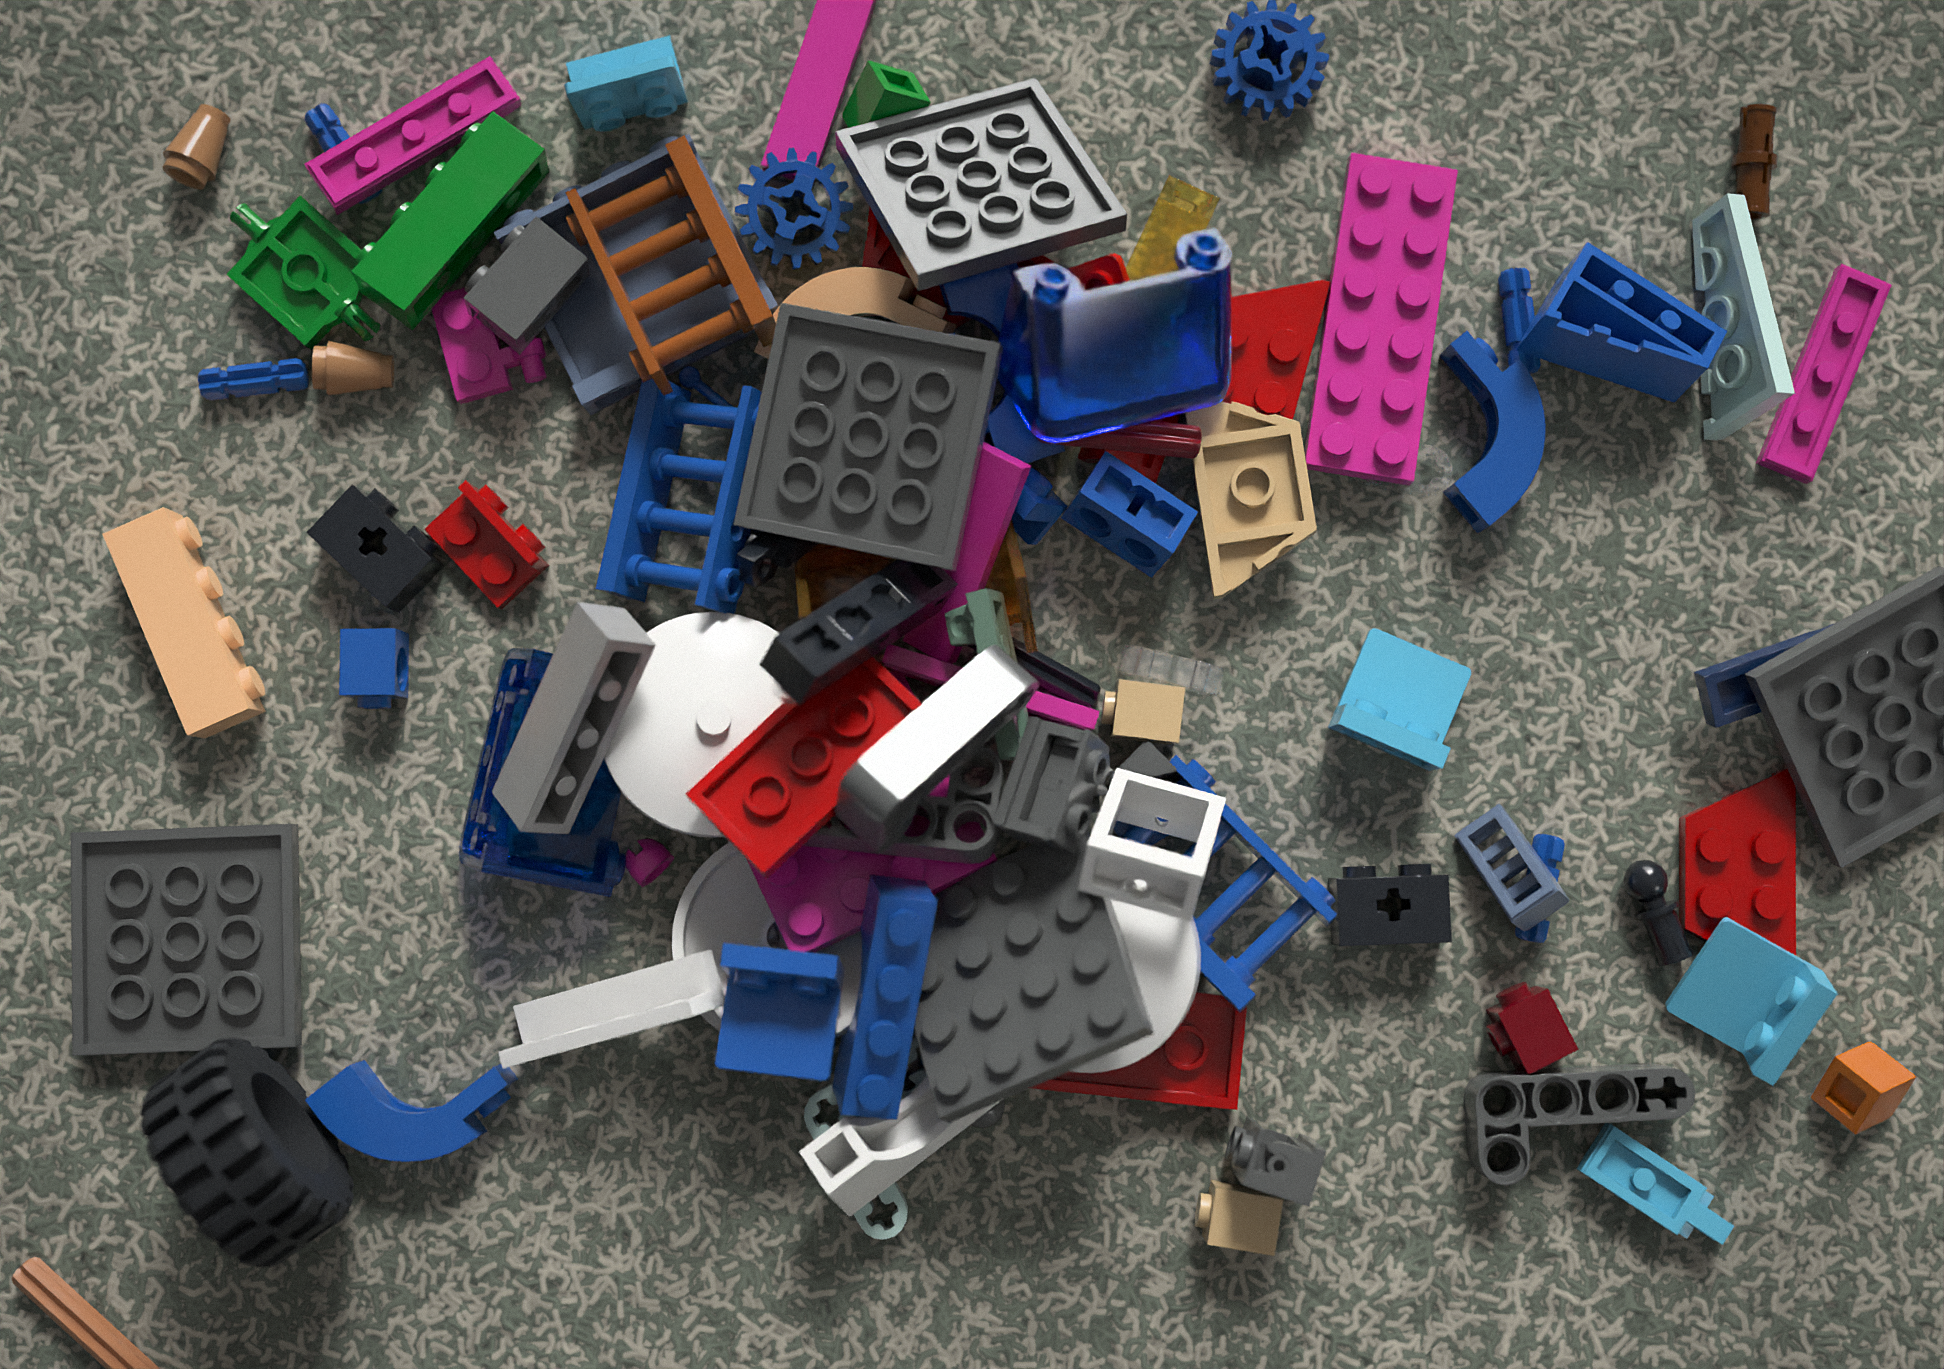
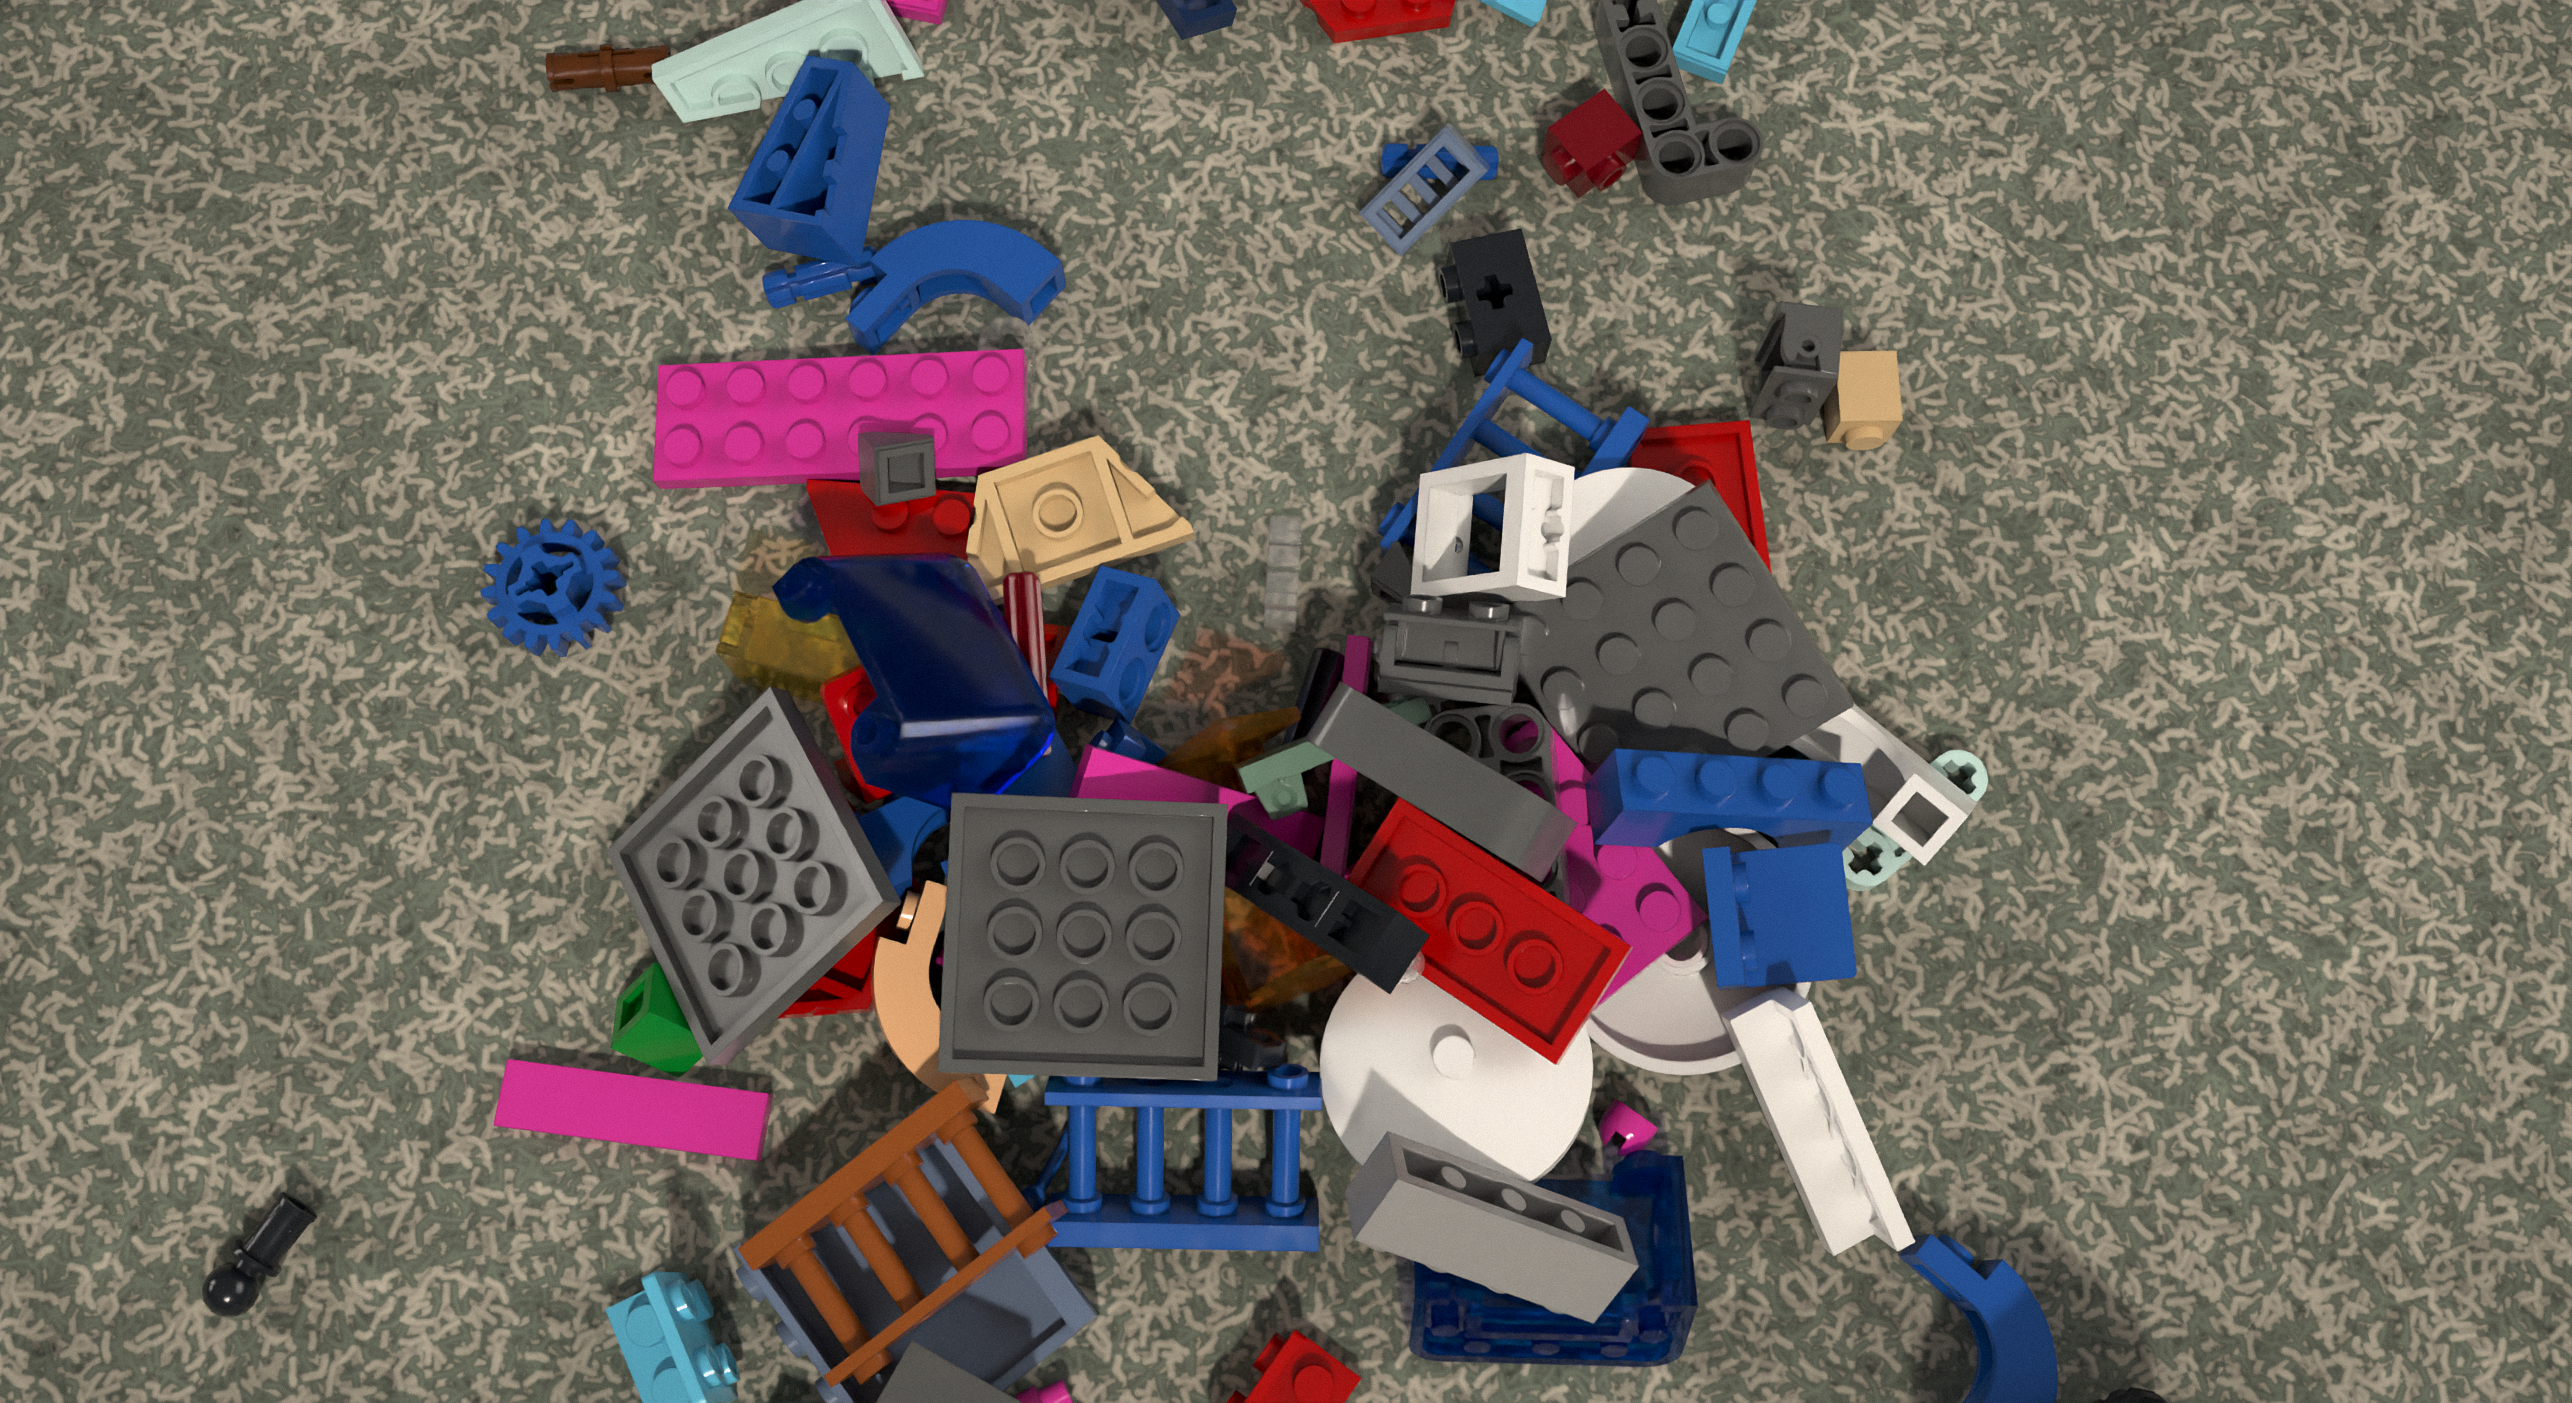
camera: 105 degrees left, 10 degrees down
(769, 198) = (781, 1100): blue gear -> none
(1144, 712) = (1335, 591): tan brick -> none
(1321, 355) = (896, 466): none -> dark grey slope
(1401, 699) = (1267, 329): medium azure bracket -> none
(1647, 884) = (1413, 58): black pin -> none

